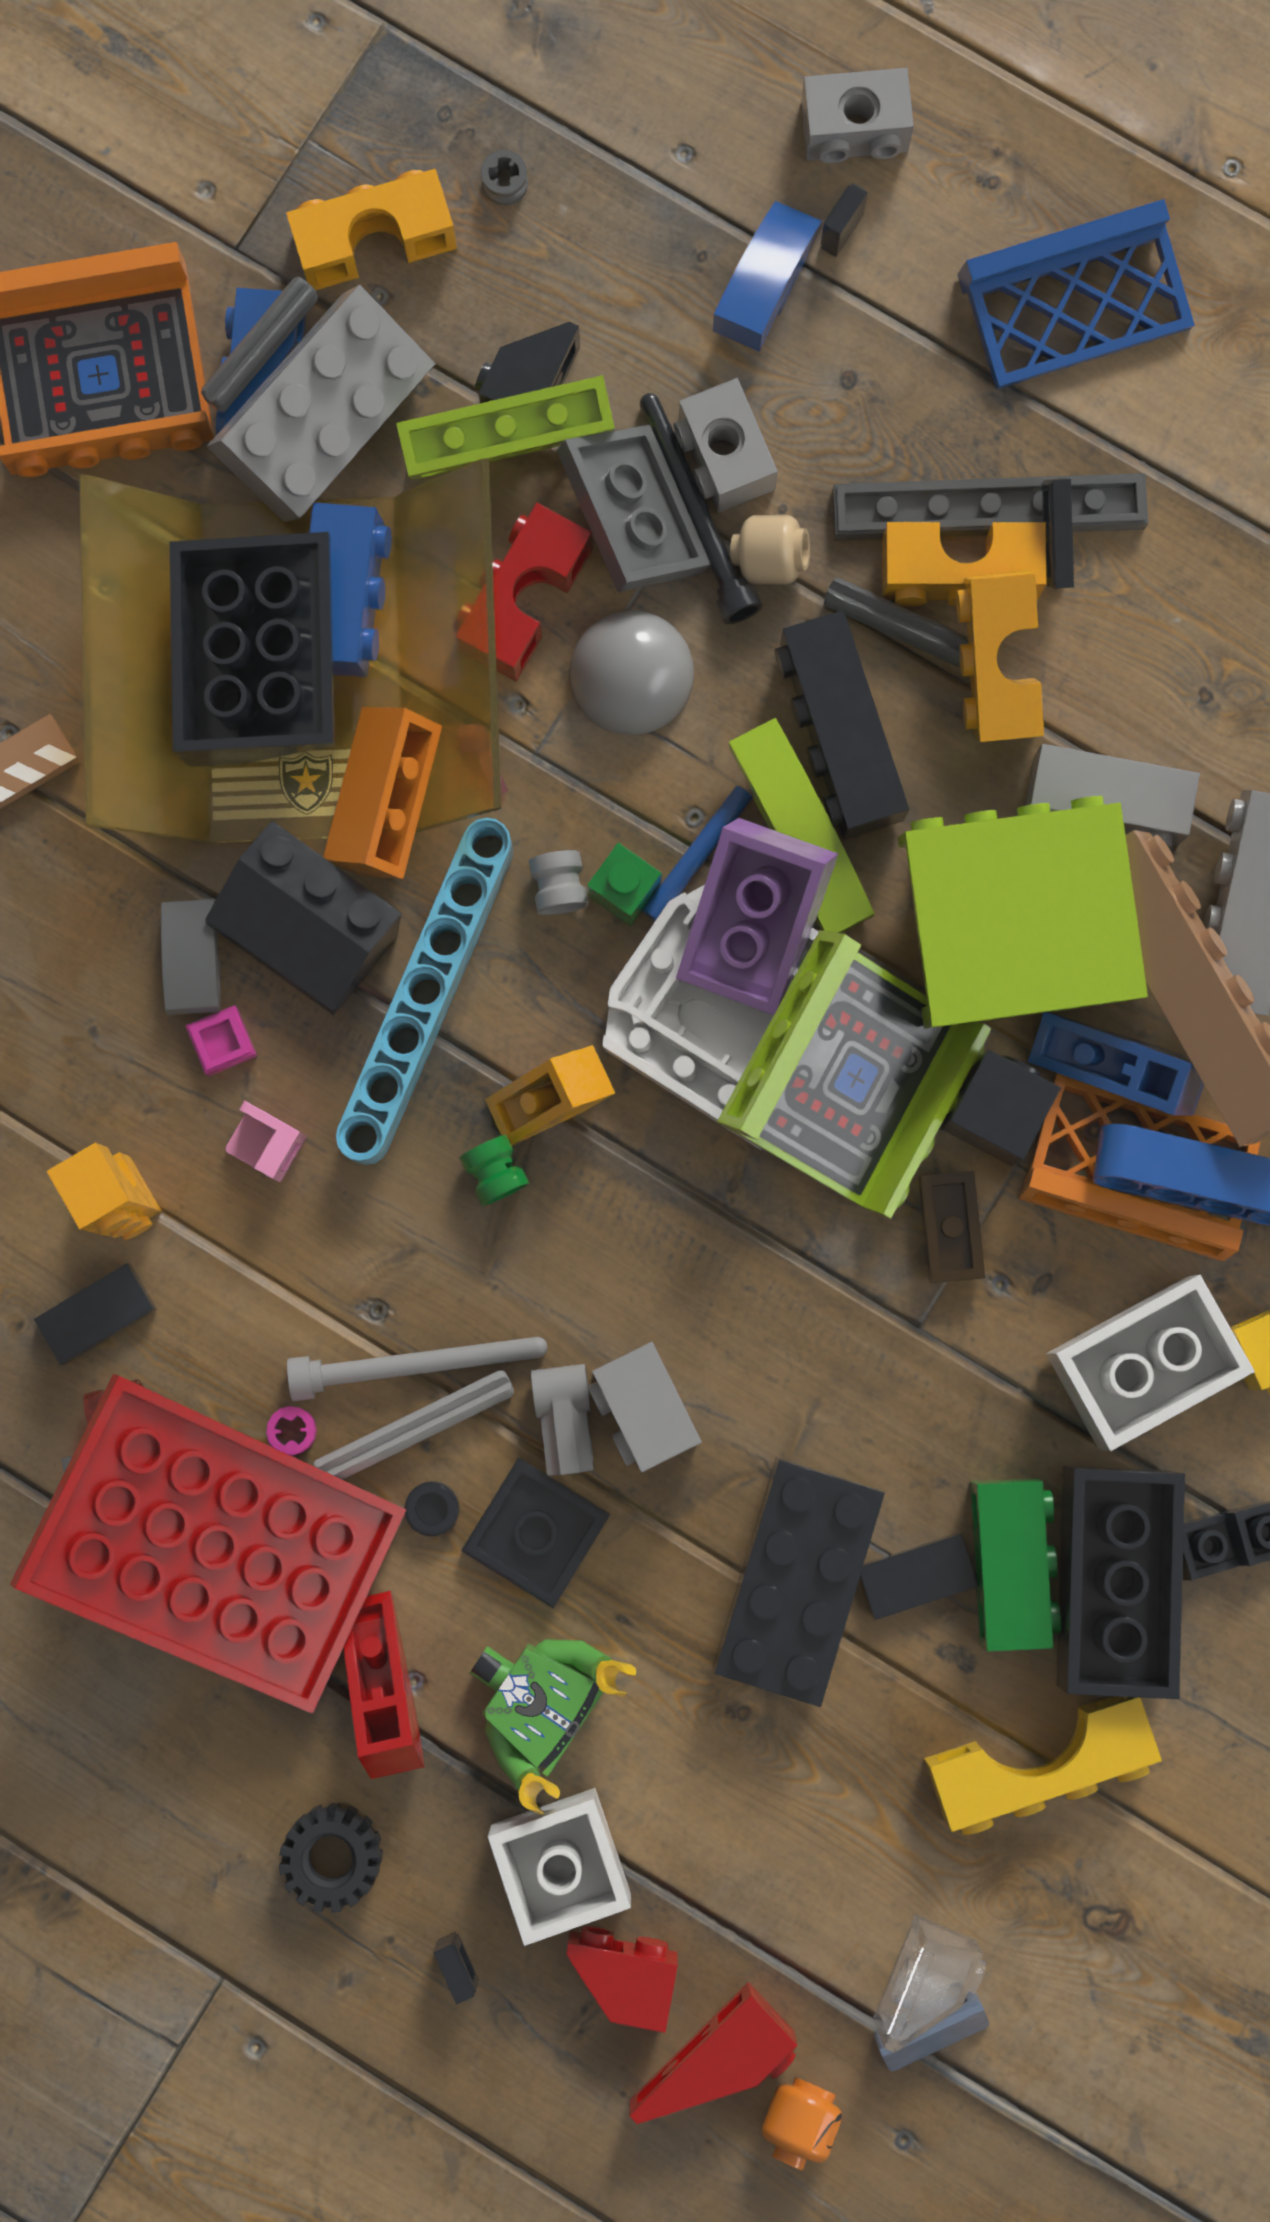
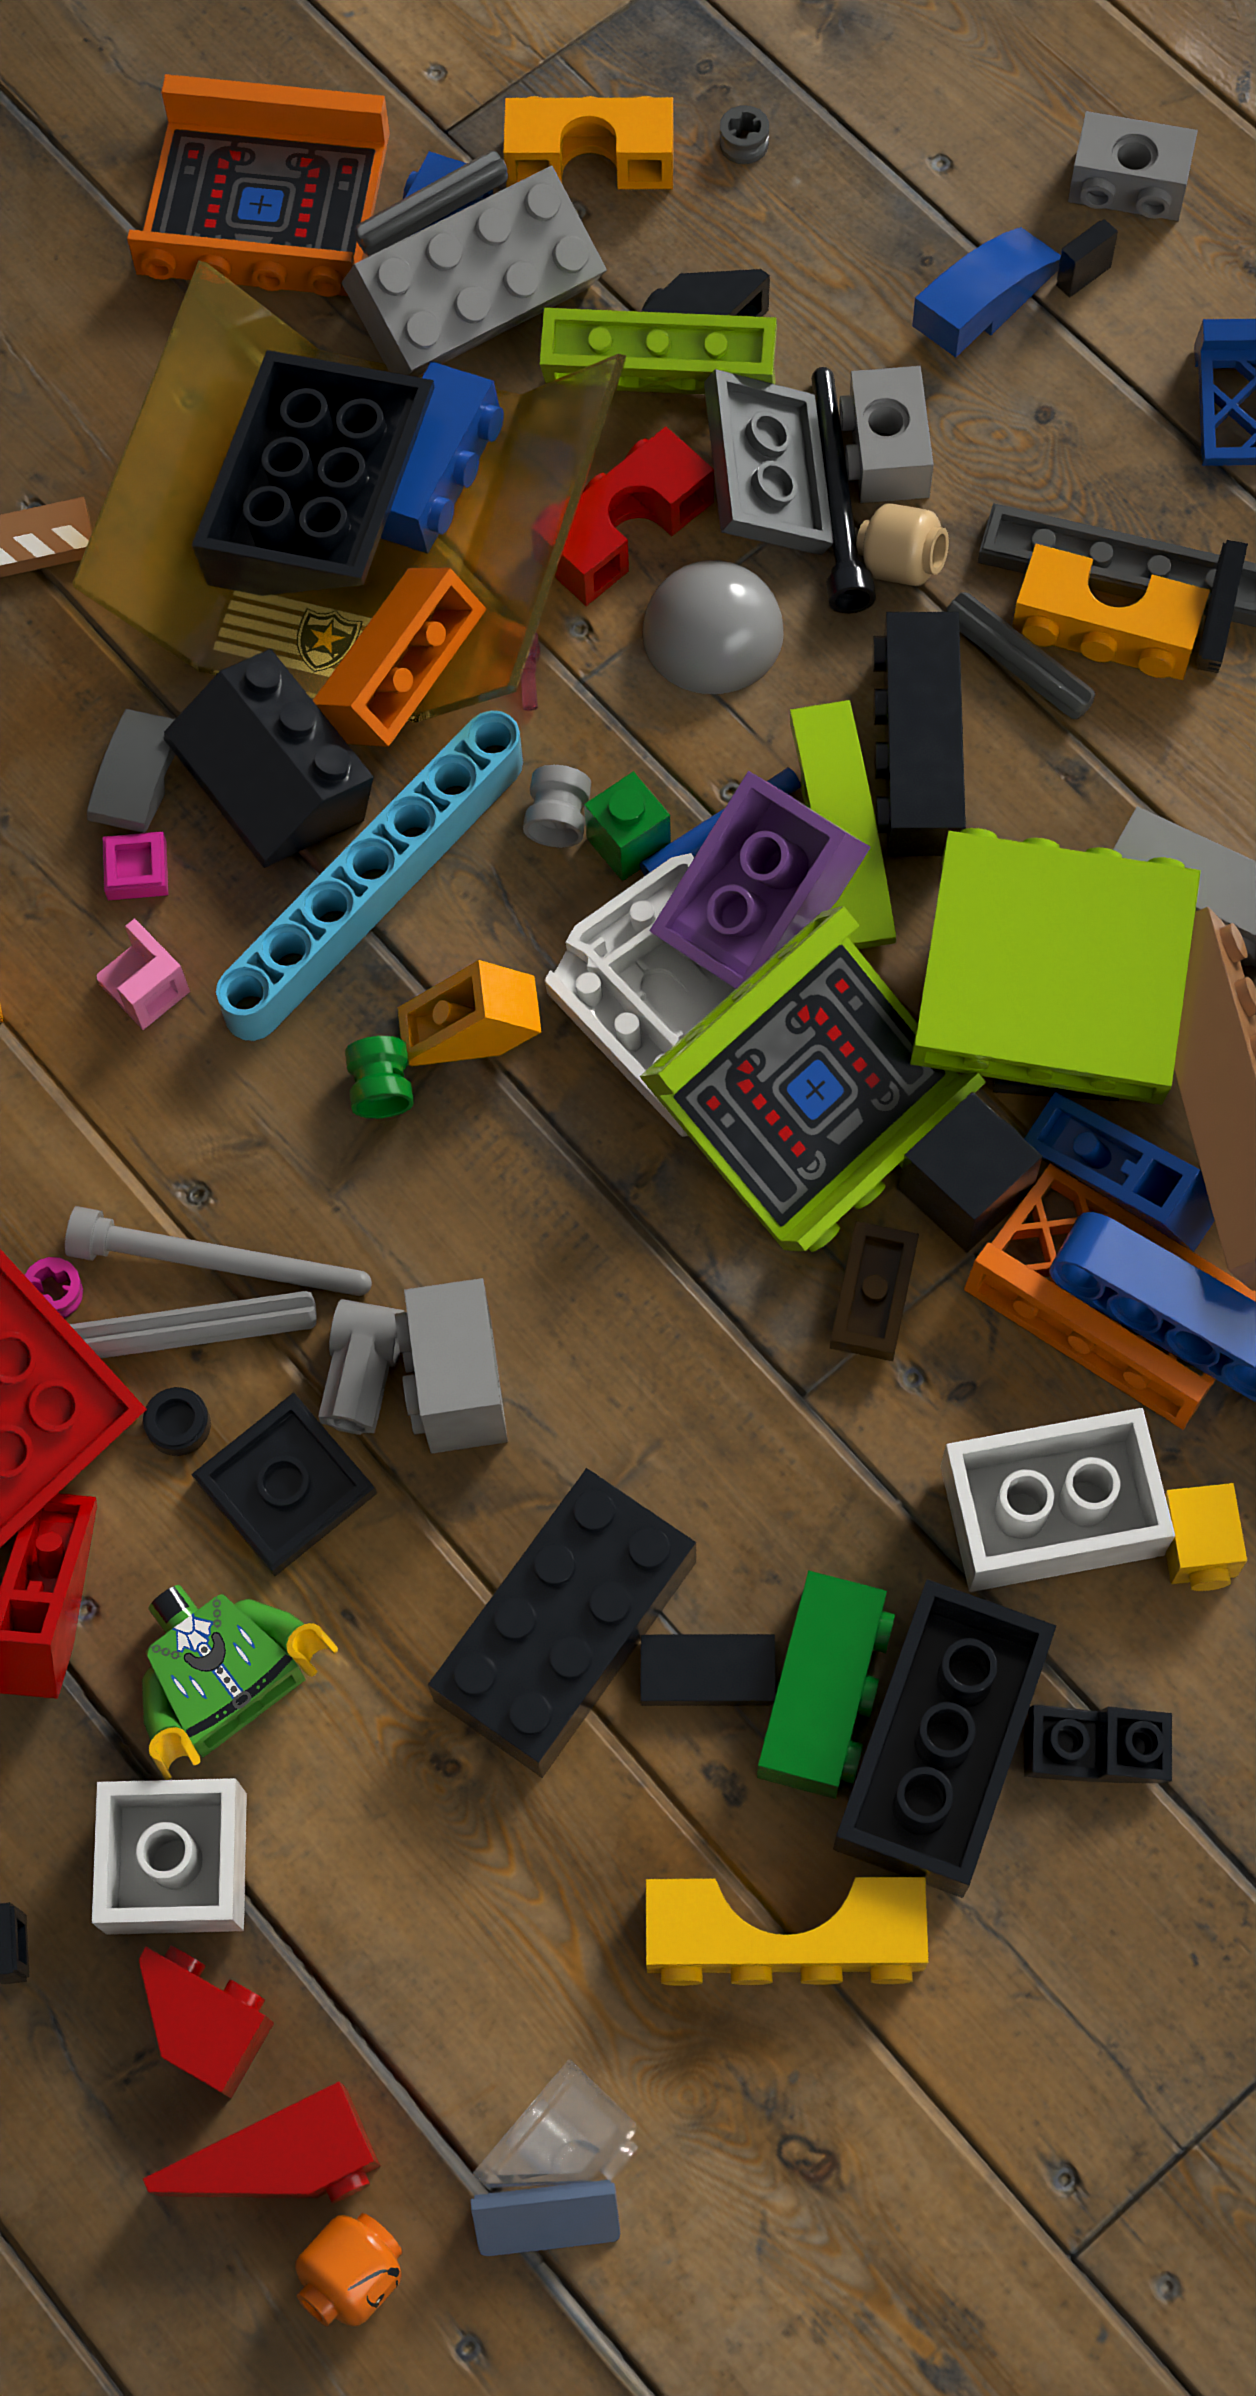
camera: 20 degrees right, 15 degrees down
(993, 610) = (1126, 653): light orange arch -> none

